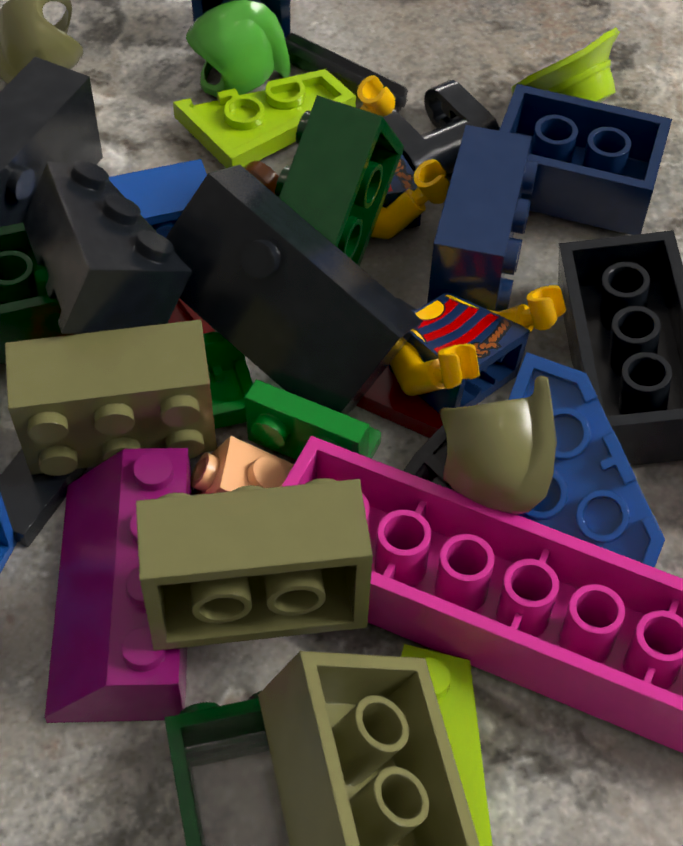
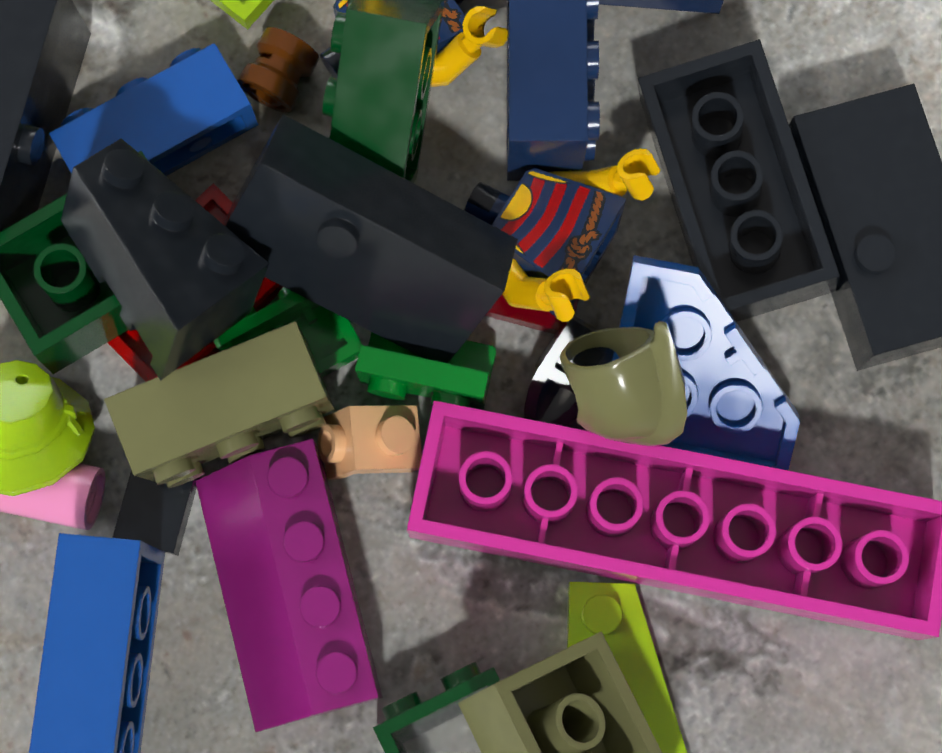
camera: 10 degrees left, 25 degrees up
(254, 563) = (424, 591): olive brick -> none

